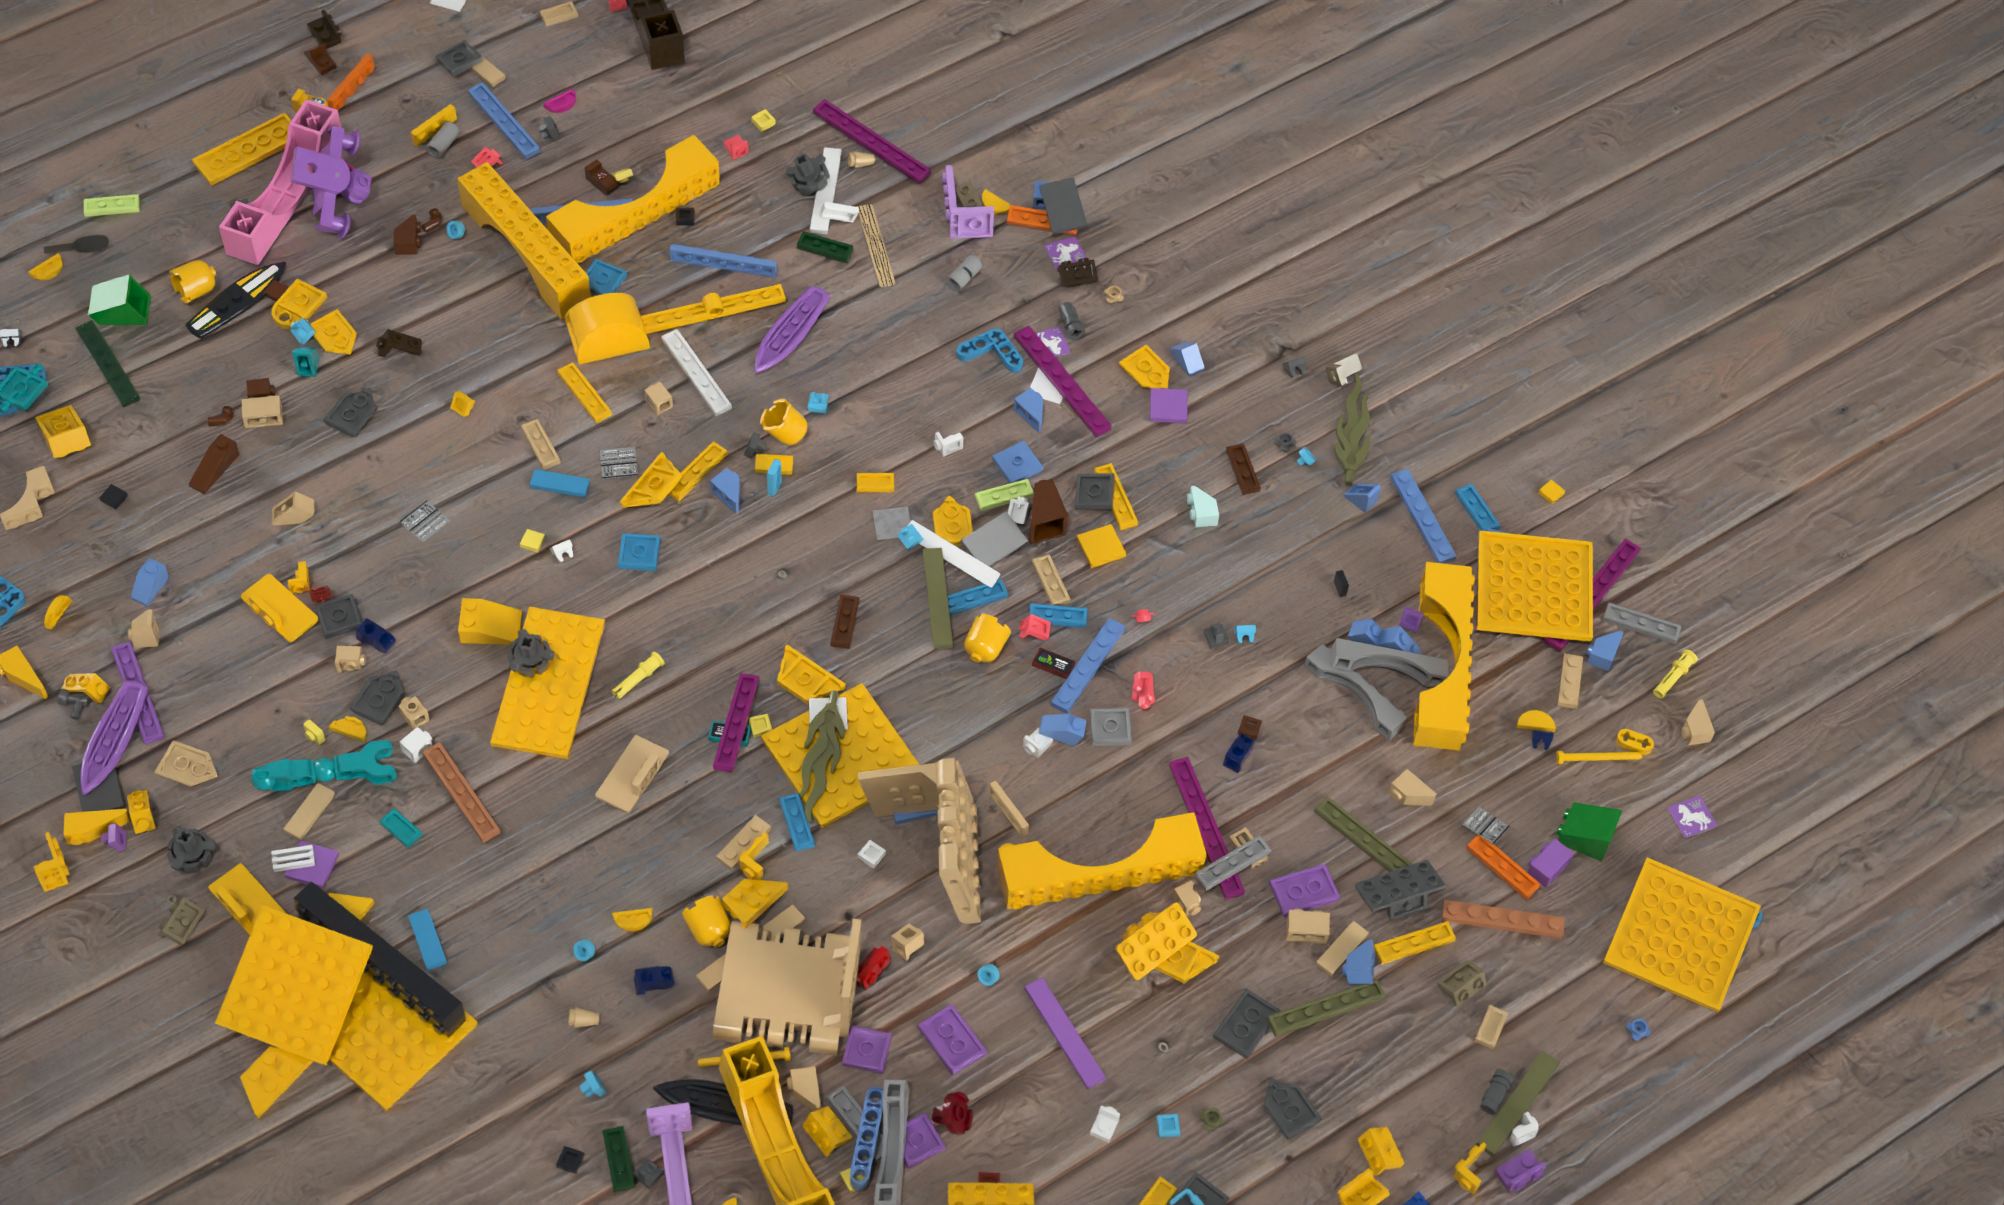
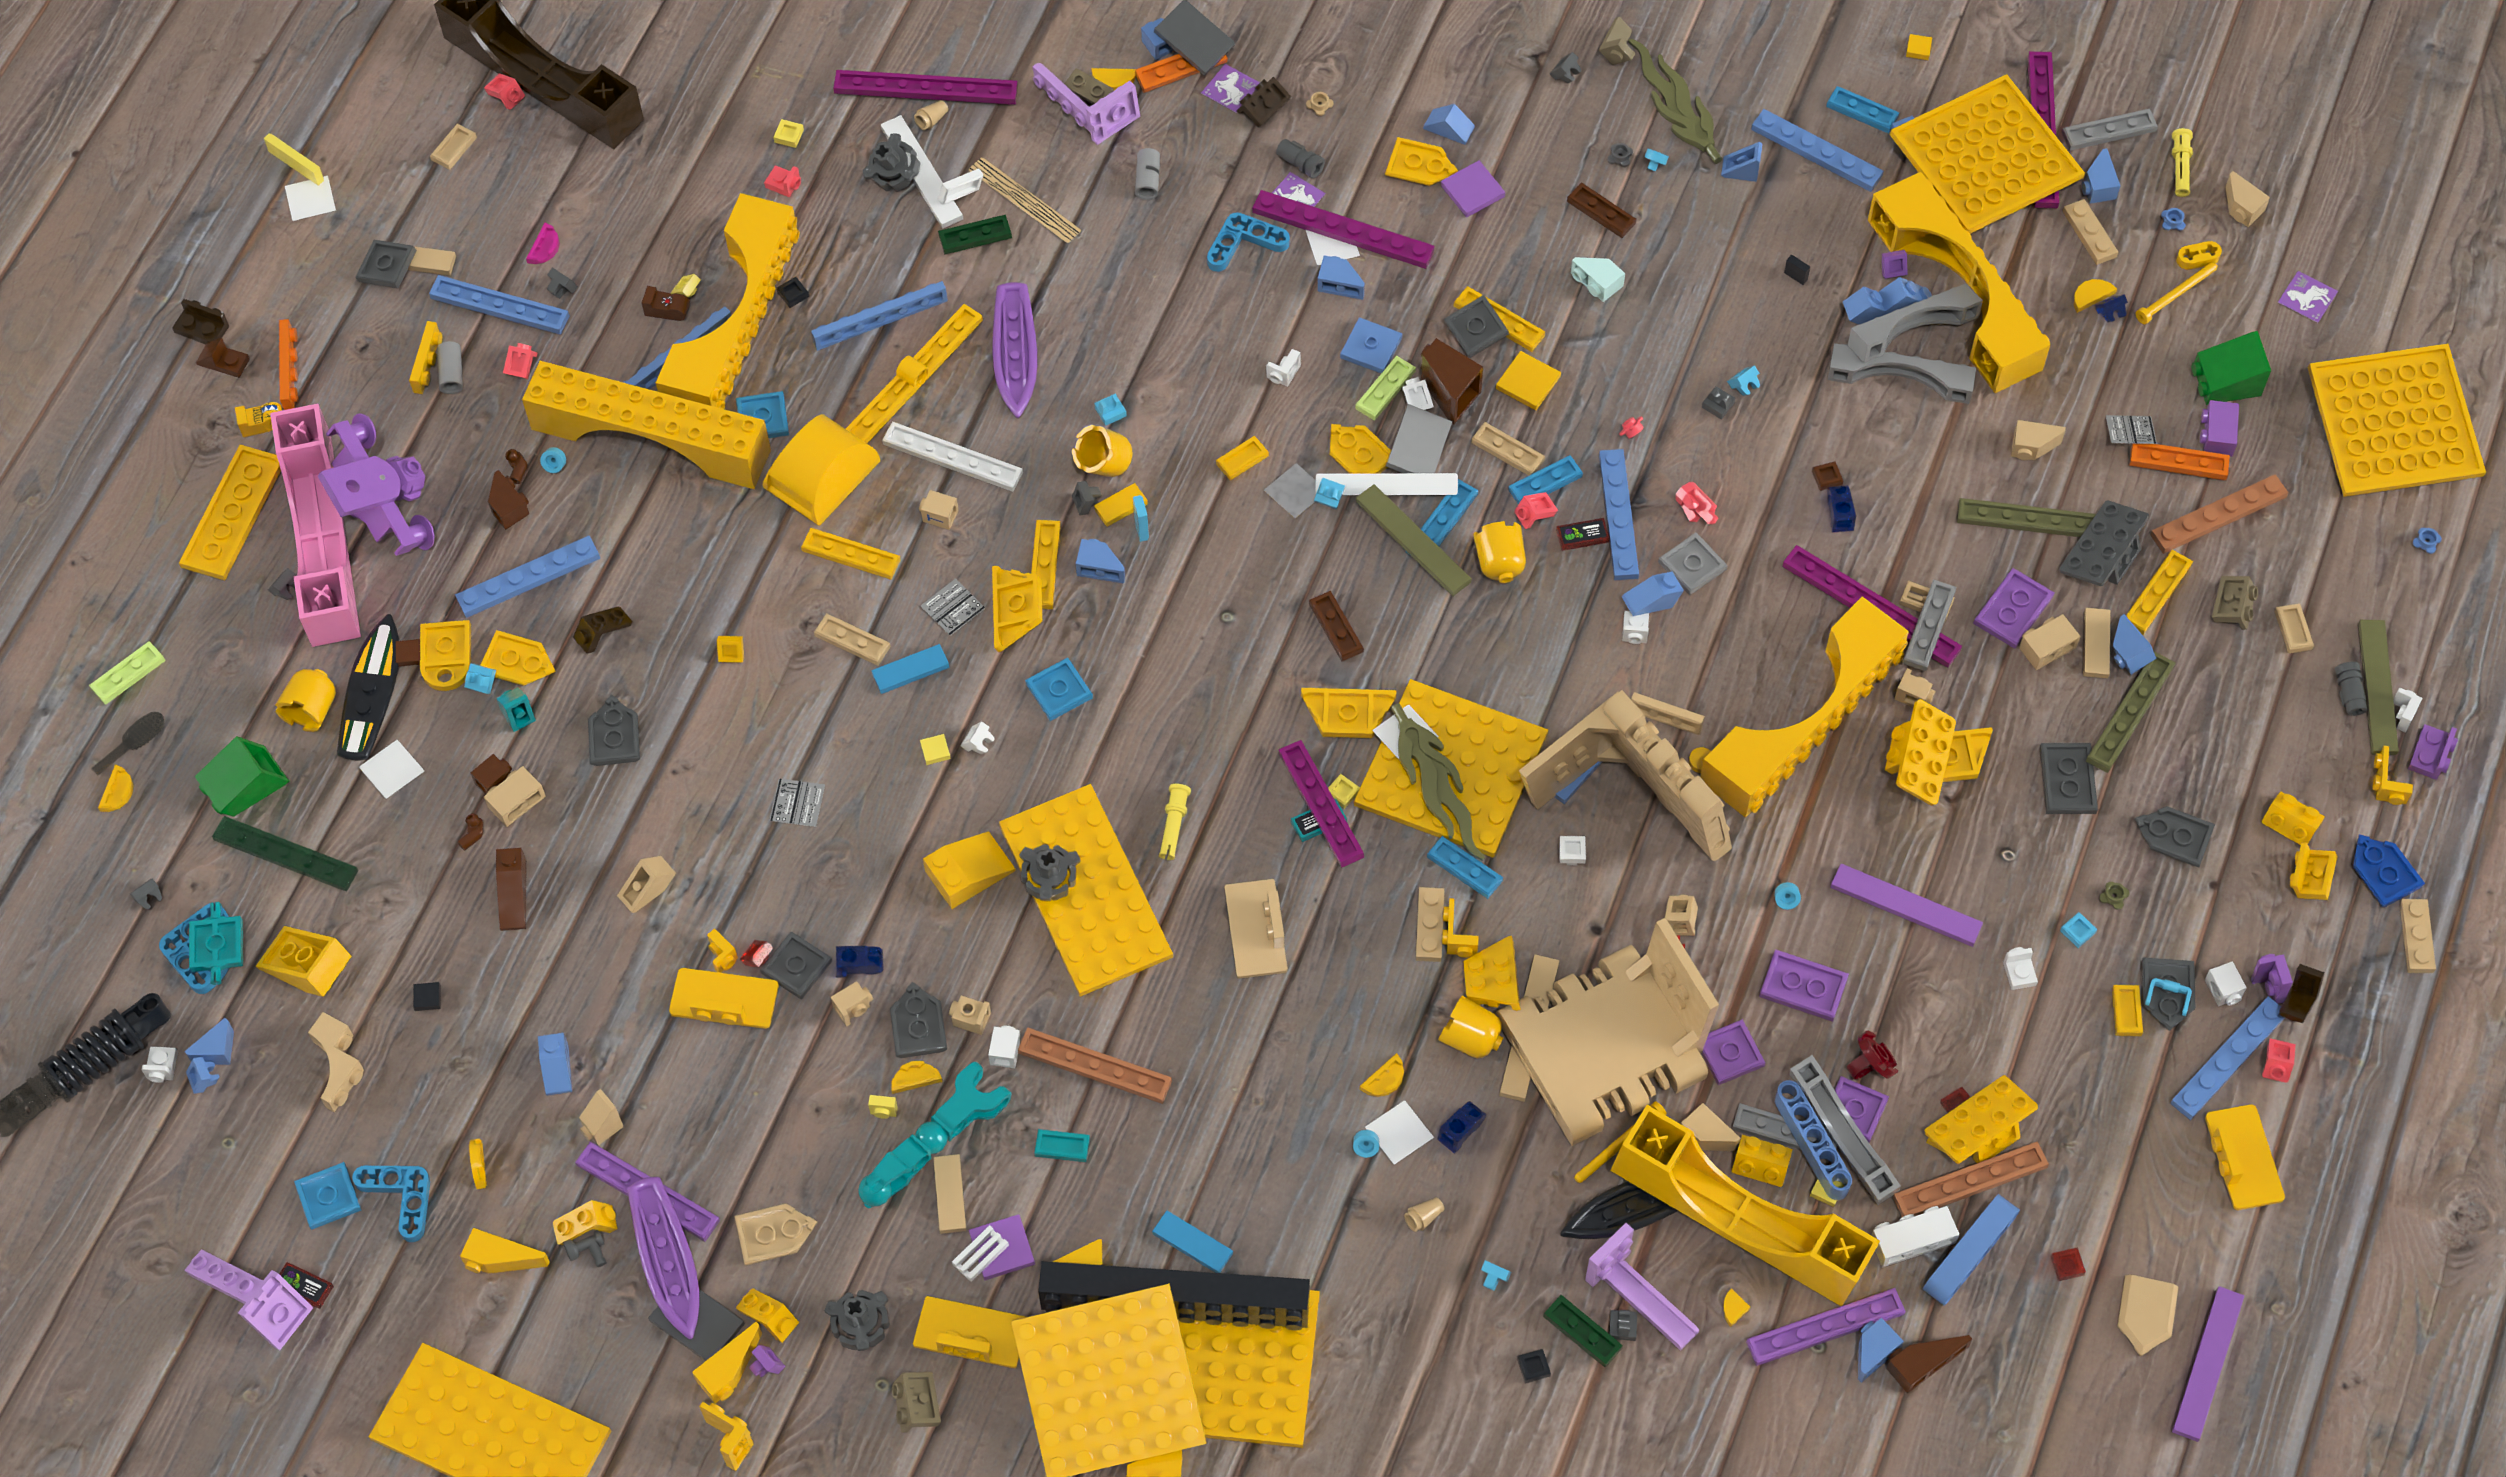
camera: 30 degrees left, 5 degrees up
(209, 353) = (391, 769): none -> white sticker
(383, 289) = (527, 576): none -> medium blue plate
(613, 958) = (1400, 1132): none -> white sticker
(1636, 703) = (2173, 214): none -> medium blue plate

